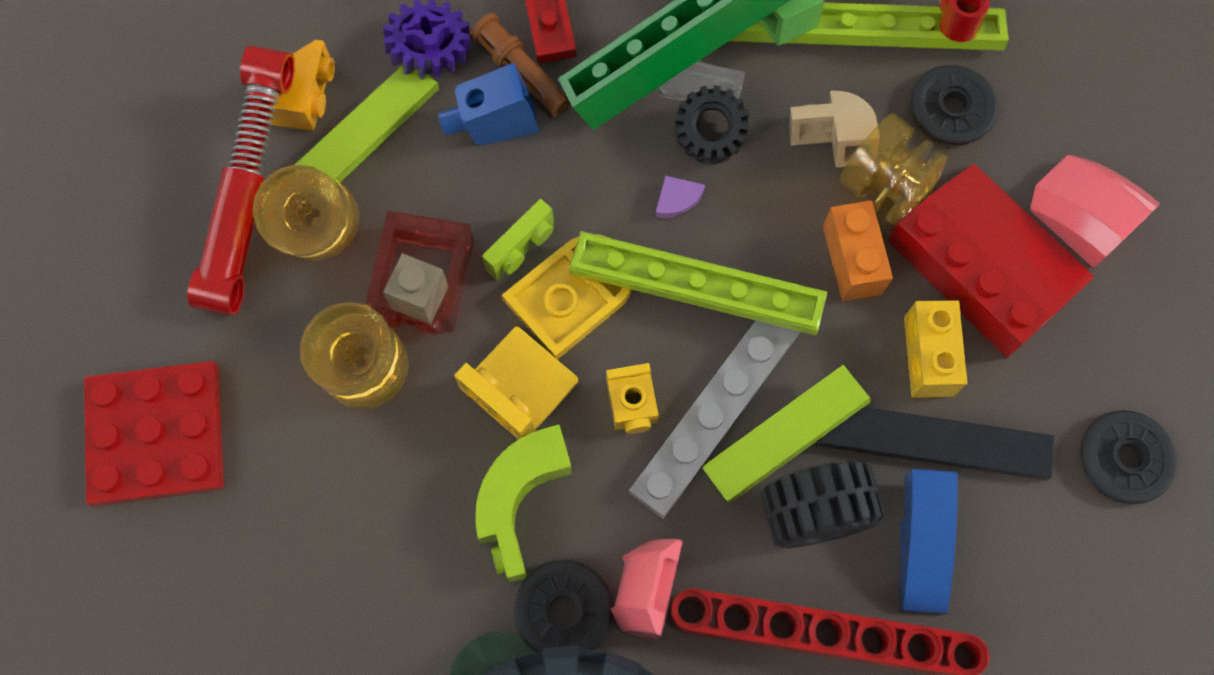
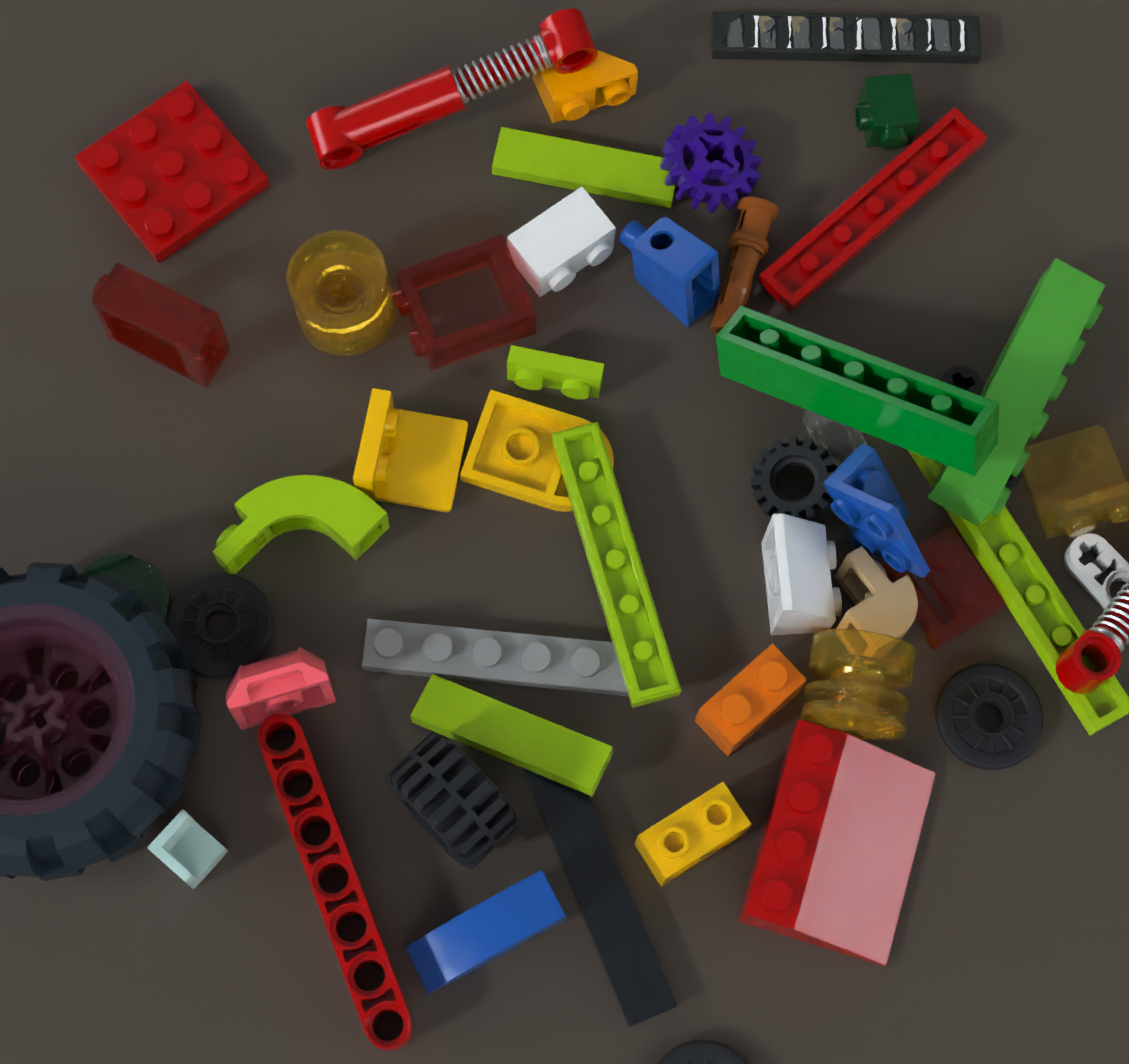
camera: 55 degrees right, 0 degrees up
(285, 512) = (160, 324): none -> clear red window
(293, 194) = (437, 147): clear yellow wheel -> none
(416, 288) = (432, 303): dark tan brick -> none
(418, 173) = (562, 242): none -> white brick
(631, 380) = (459, 588): yellow brick -> none
(678, 197) = (700, 496): medium lavender tile -> none
(777, 87) = (874, 511): none -> blue bracket
(784, 165) = (799, 576): none -> white slope
(844, 69) = (958, 586): none -> clear red plate
(1090, 206) = (964, 918): coral slope -> none

